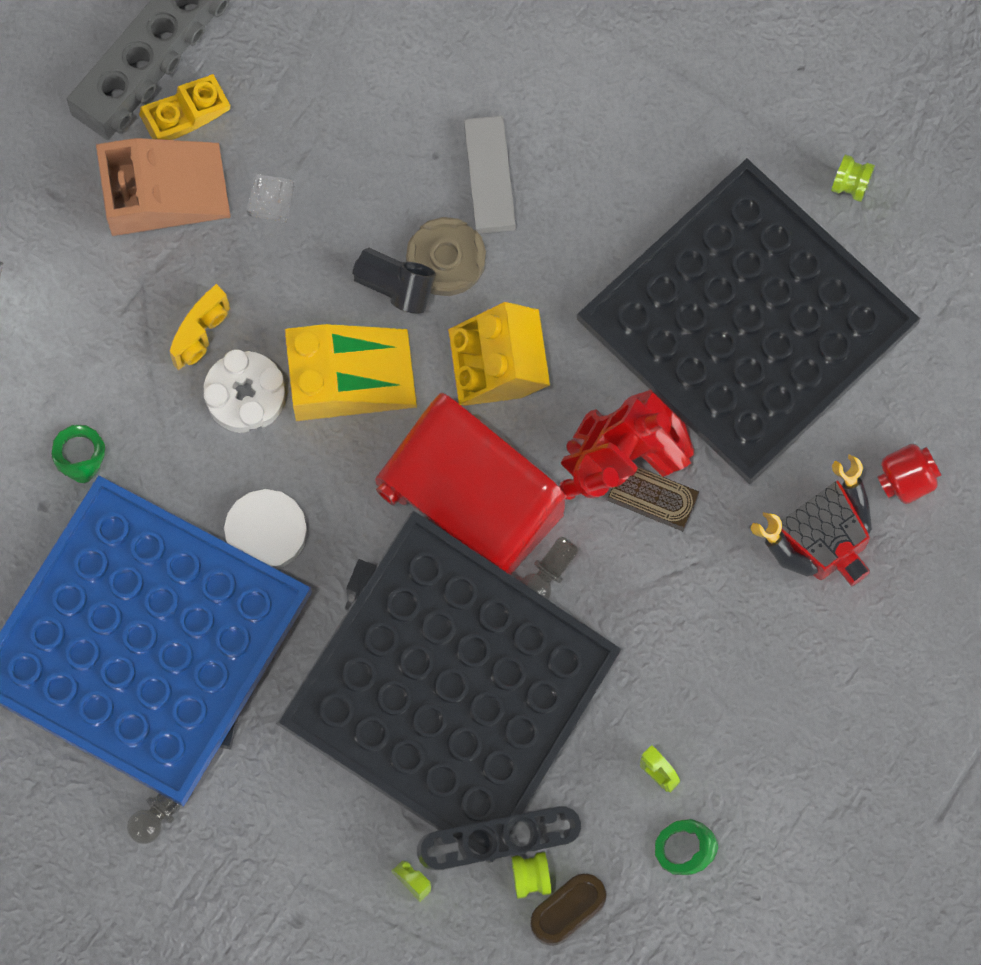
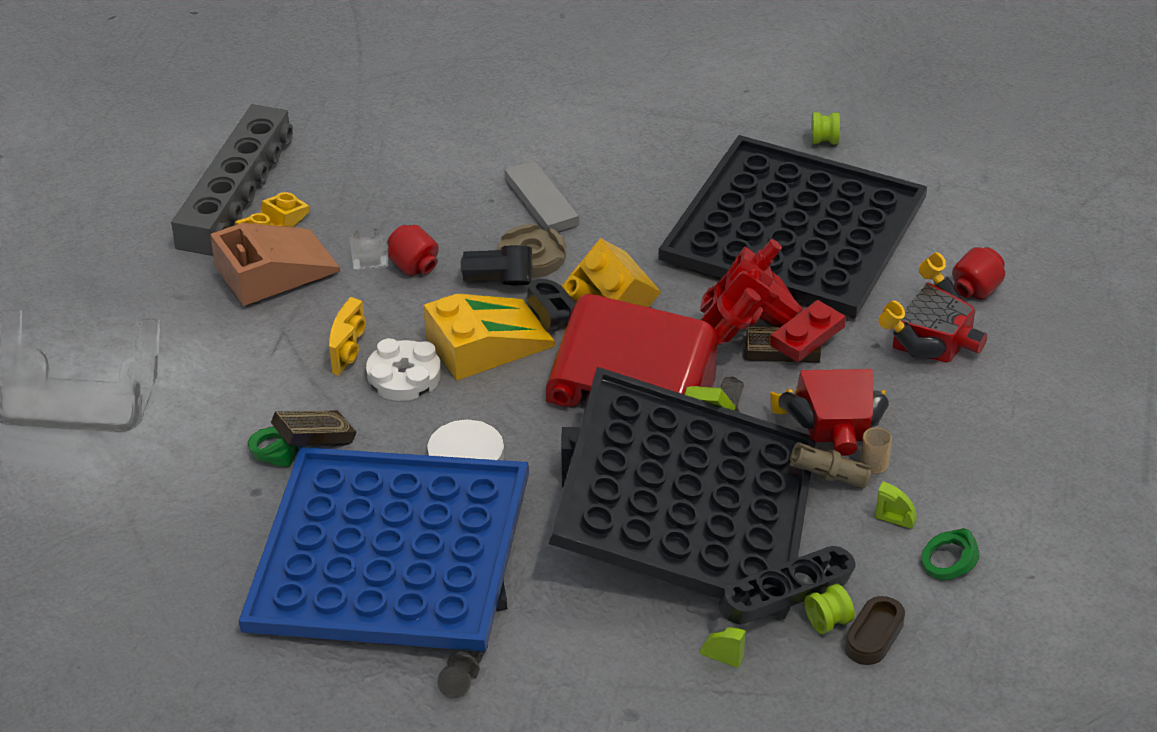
camera: 20 degrees left, 30 degrees down
(120, 453) = (313, 427): none -> tile
(314, 221) = (412, 250): none -> red head
(431, 340) = (546, 298): none -> black plate
(532, 579) = (711, 395): none -> lime tile
(615, 696) = (830, 465): none -> dark tan pin
(652, 628) = (834, 405): none -> red torso
(674, 674) = (866, 444): none -> tan piece
(681, 496) = (807, 331): none -> red plate

